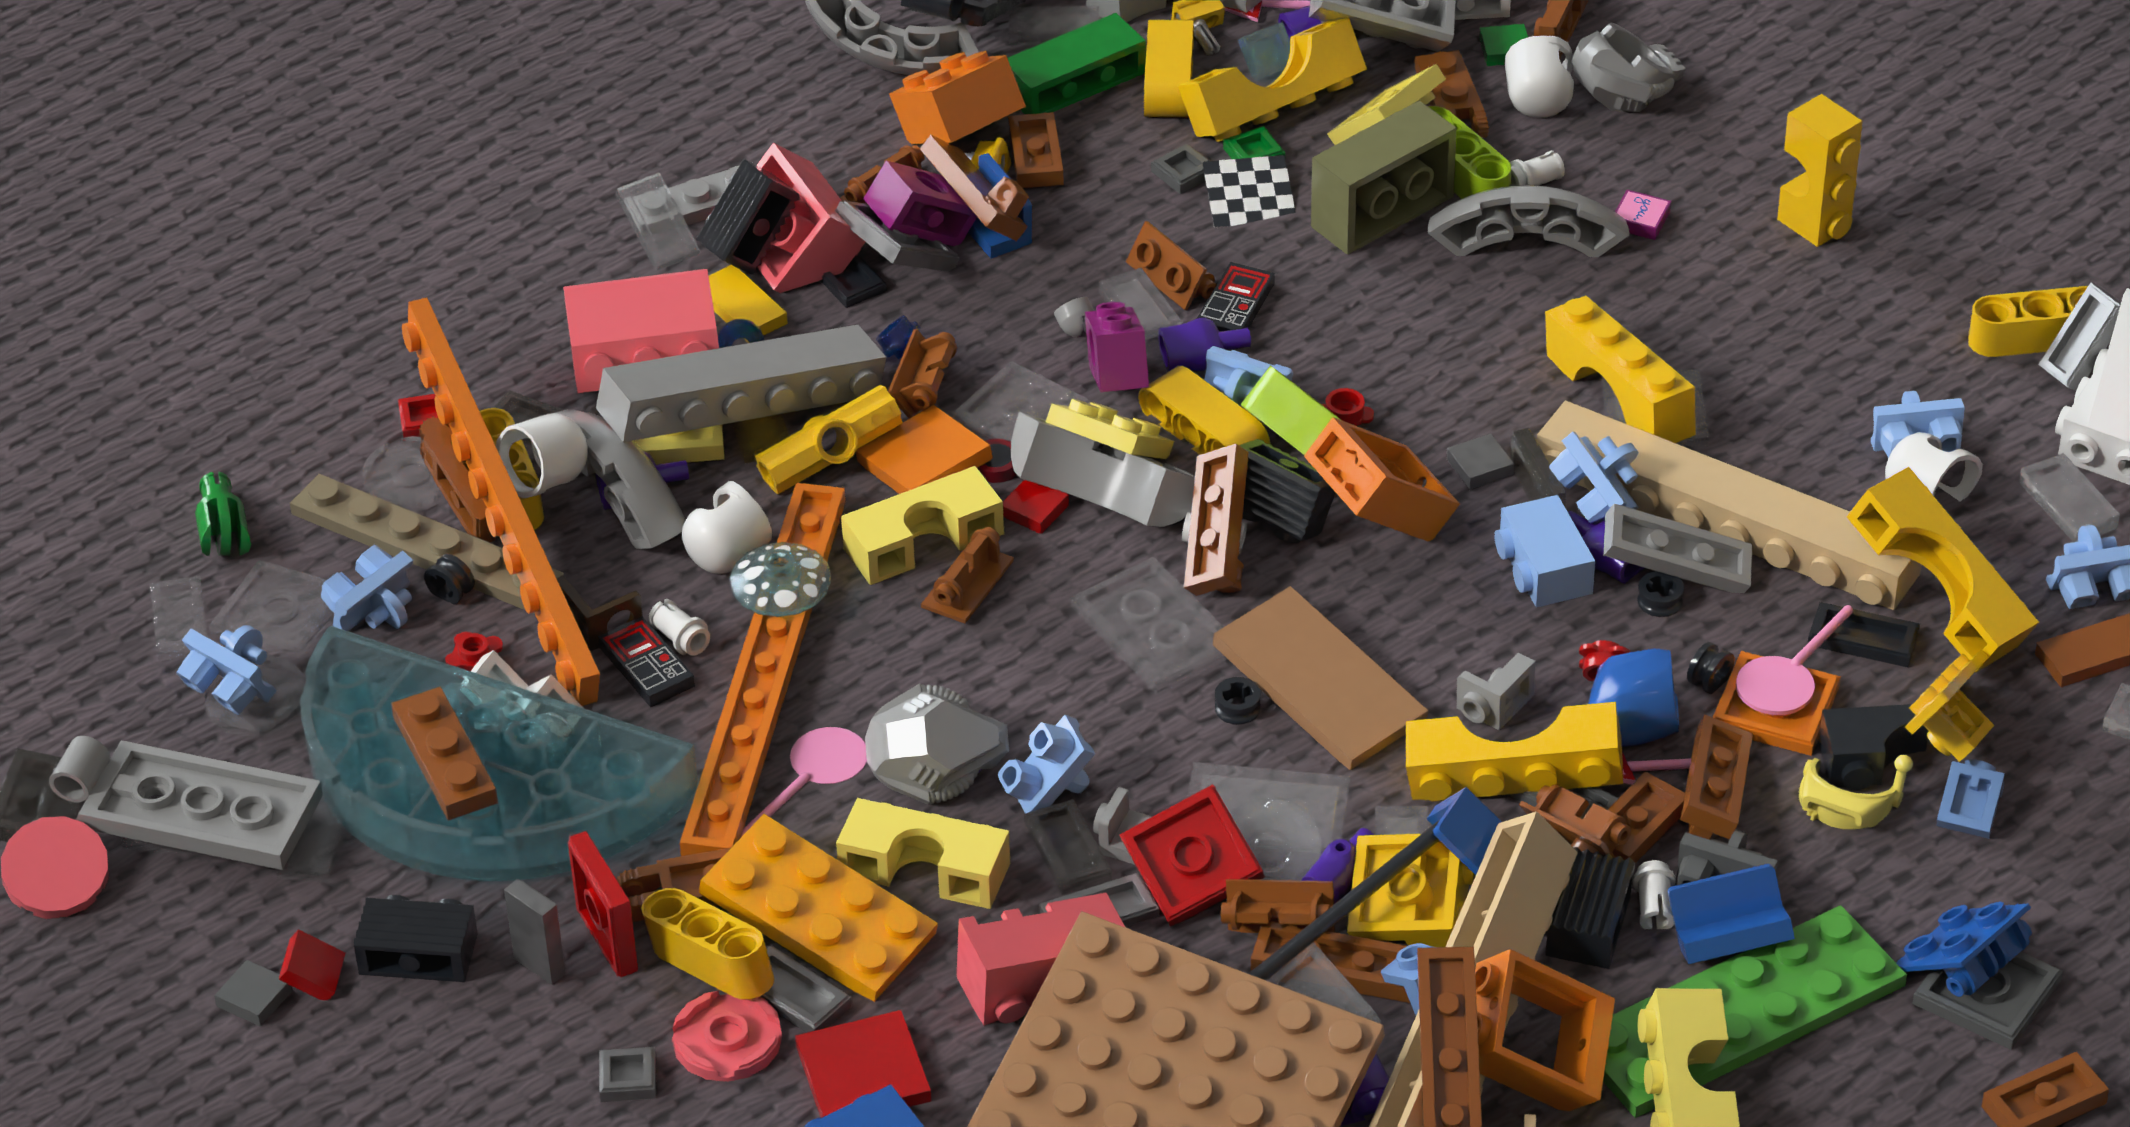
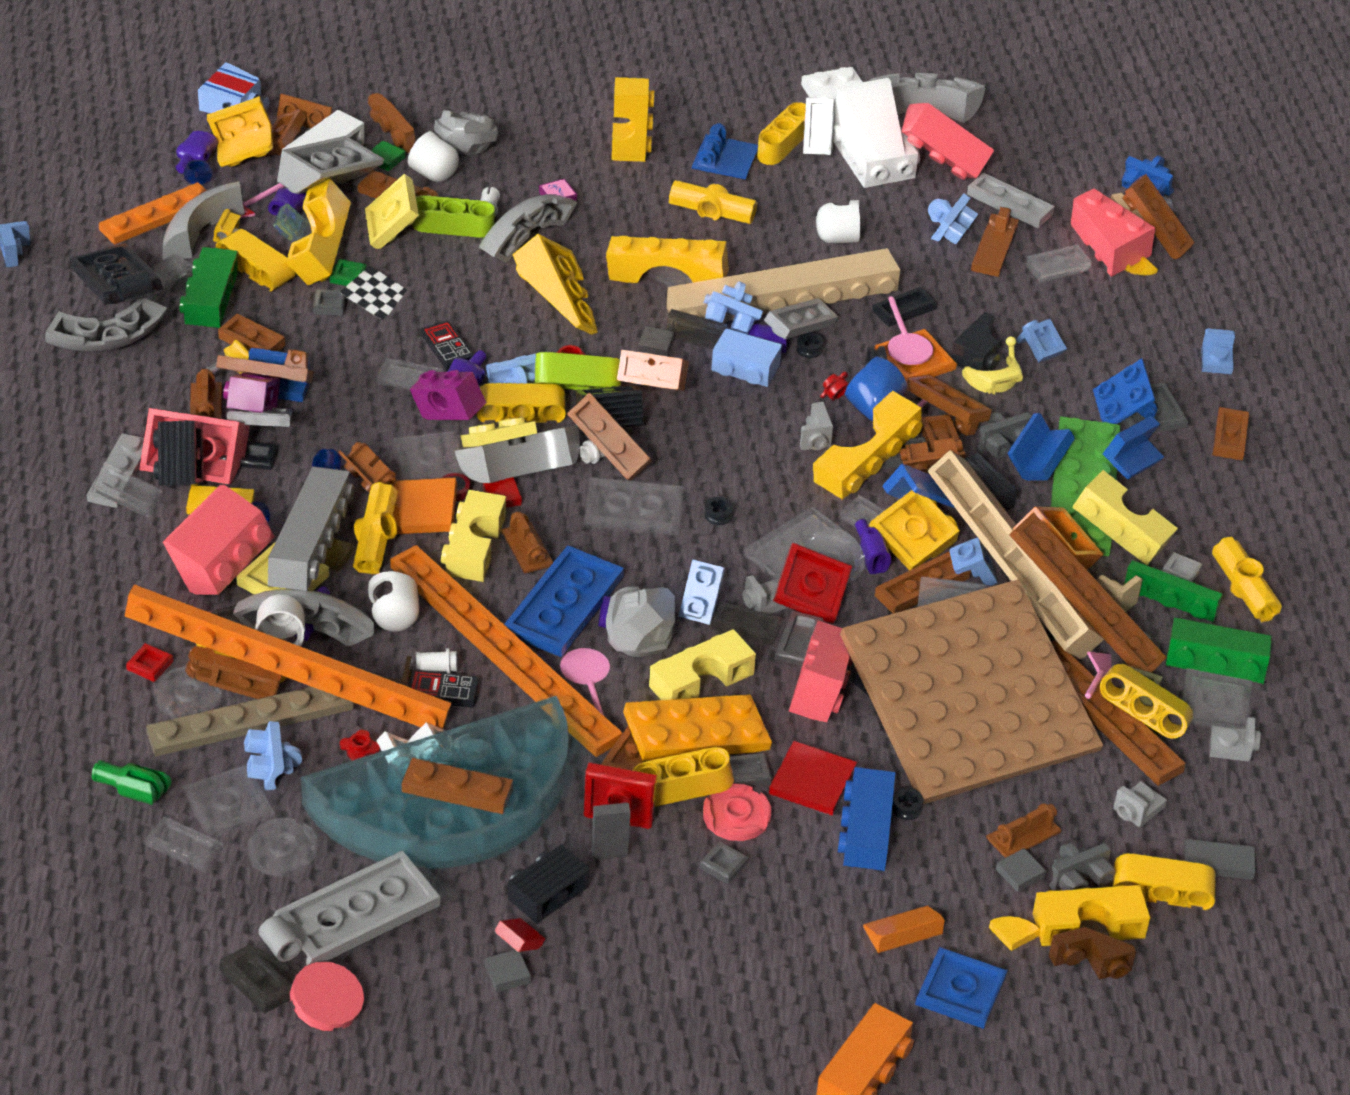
camera: 55 degrees left, 0 degrees up
(233, 662) = (265, 834): light blue hips -> none
(449, 578) = (295, 714): black bush -> none
(780, 579) = (455, 604): clear light blue dish -> none
(864, 669) = (564, 600): none -> blue plate
(957, 97) = (193, 334): orange brick -> none
(1072, 316) = (391, 399): light grey hinge -> none
(1170, 267) = (399, 346): dark orange hinge -> none
(1284, 901) = (874, 575): dark orange hinge -> none
(1319, 677) = (738, 475): medium nougat tile -> none
(1346, 905) = (912, 547): black axle -> none
(1383, 177) = (442, 242): olive brick -> none
(1462, 310) = (555, 276): none -> yellow wedge
(1652, 883) = (1001, 466): white pin -> none
(1810, 345) = (713, 201): none -> yellow piece
(1861, 1012) = (1132, 451): none -> blue panel
(1909, 522) = (944, 261): yellow arch -> none
(1922, 298) = (724, 155): none -> blue hinge
(1936, 417) = (804, 206): light blue hips -> none
(1948, 714) = (1001, 301): yellow bracket -> none
(2068, 496) = (898, 198): clear plate -> none

